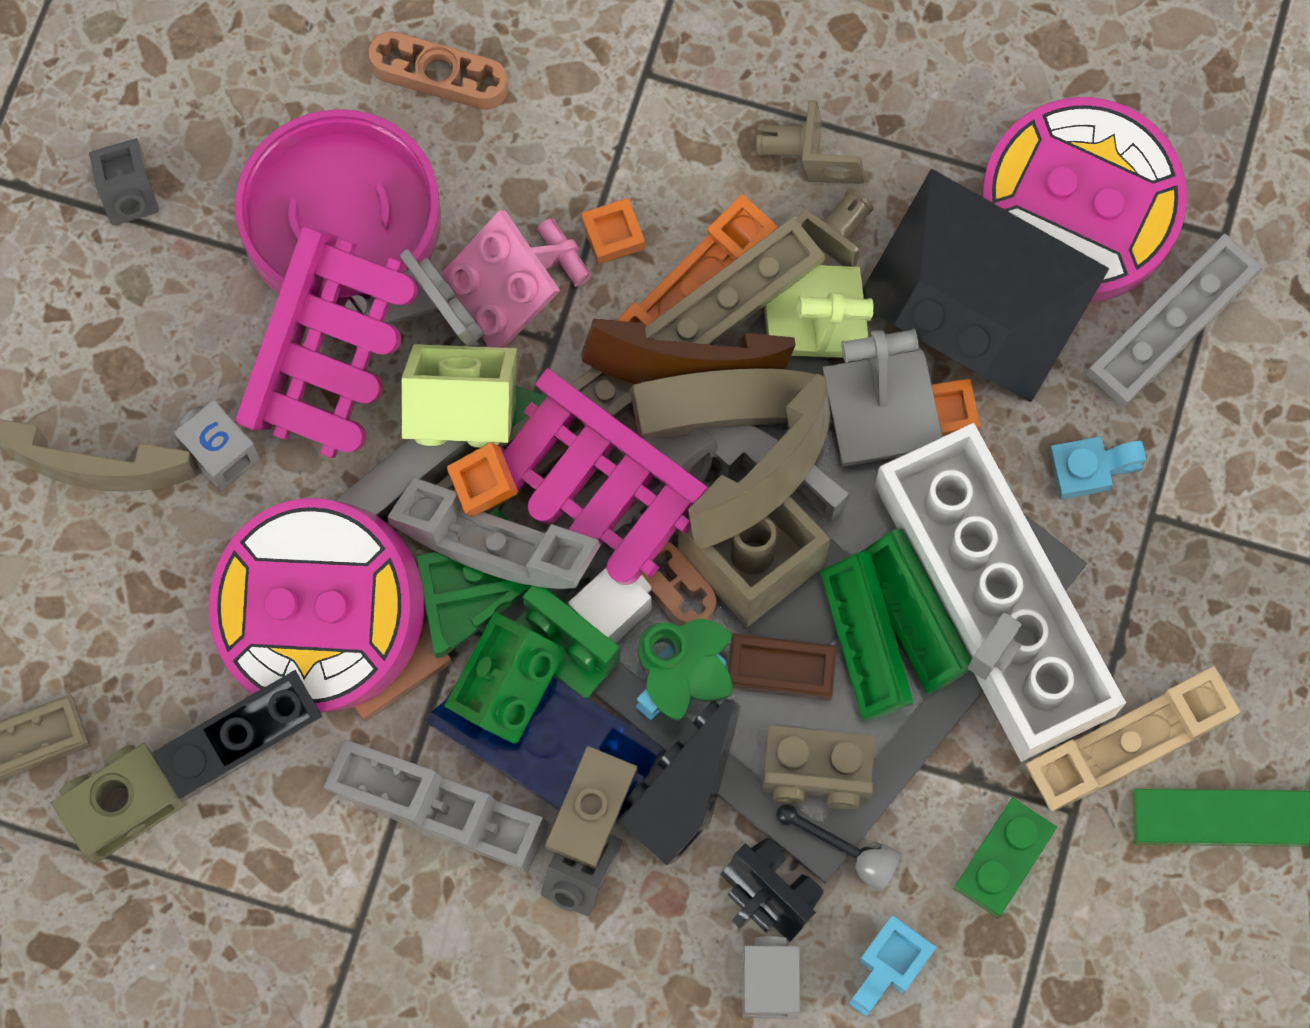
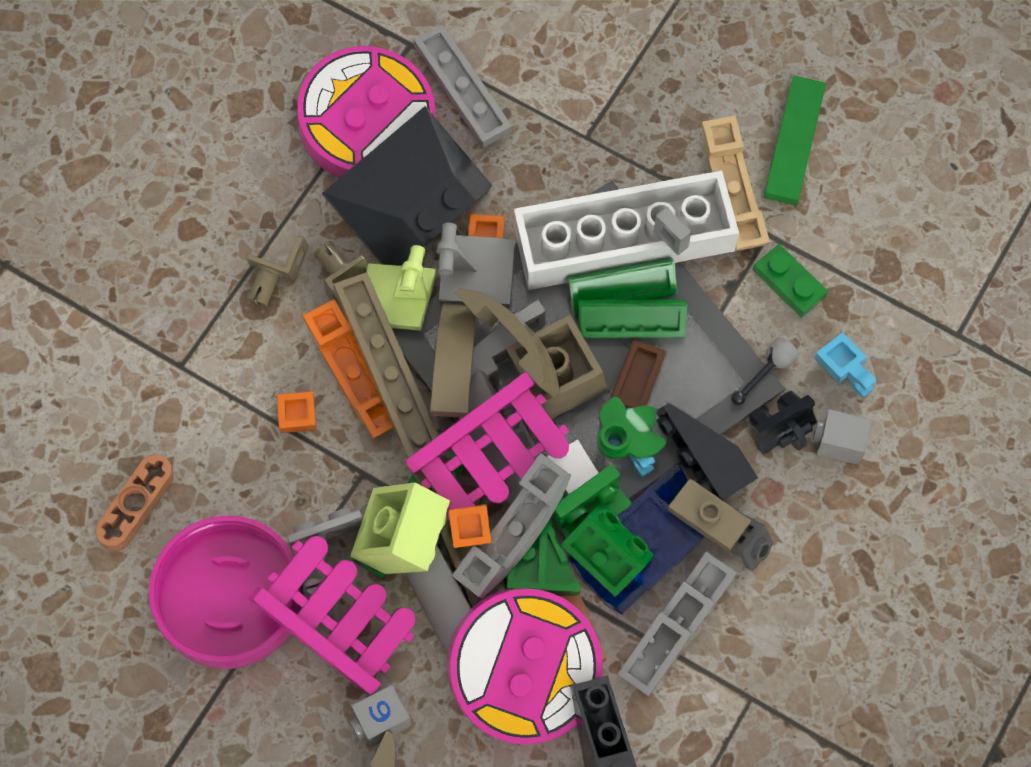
camera: 75 degrees left, 5 degrees down
(123, 182) = (152, 743): dark grey bracket -> none
(507, 280) = (315, 484): bright pink plate -> none
(626, 354) = (407, 407): reddish brown slope -> none
(687, 578) = (567, 418): nougat beam -> none
(818, 765) = (708, 371): dark tan bracket -> none
(1087, 468) = (545, 164): medium azure plate -> none

